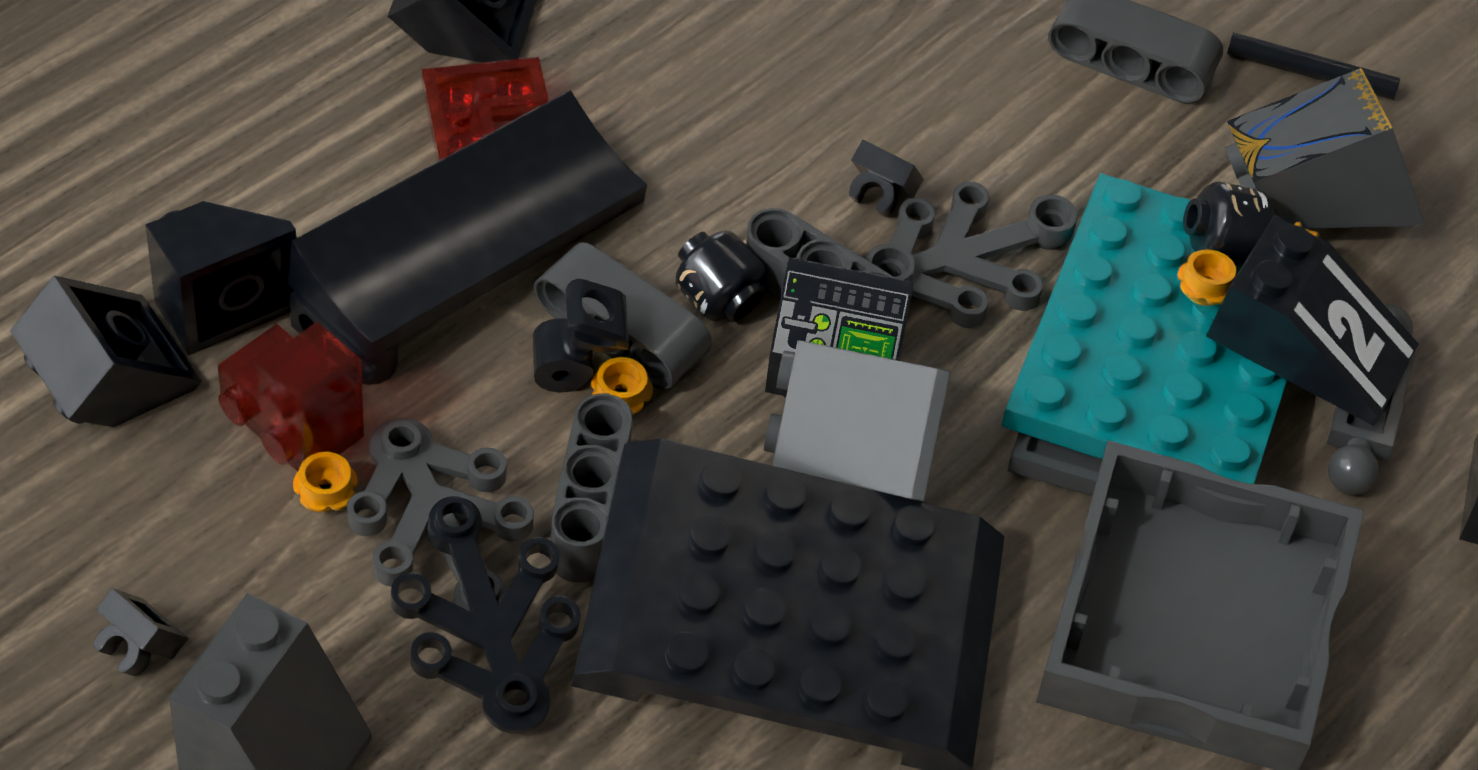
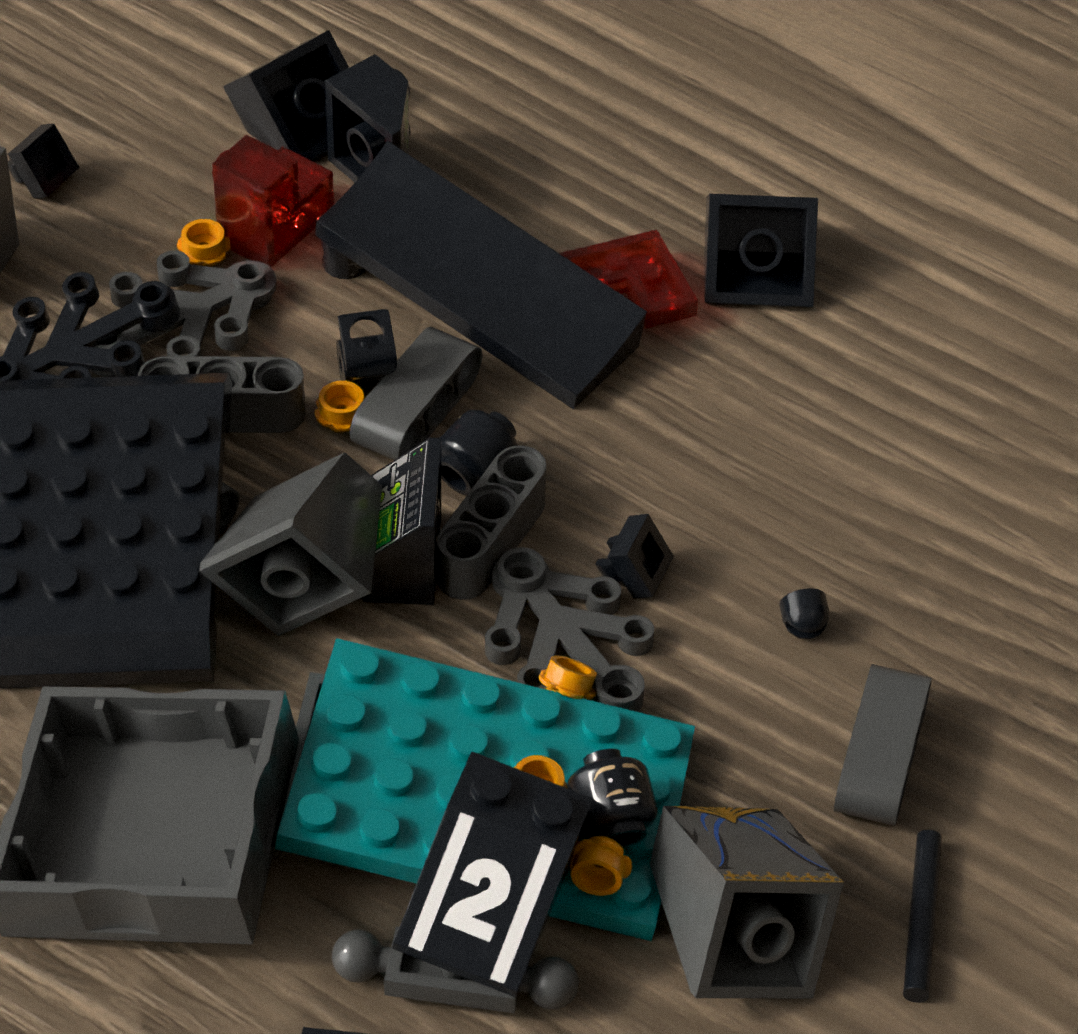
camera: 85 degrees right, 5 degrees down
(968, 67) = (805, 612): none -> black hinge
(1043, 251) = (569, 678): none -> light orange plate

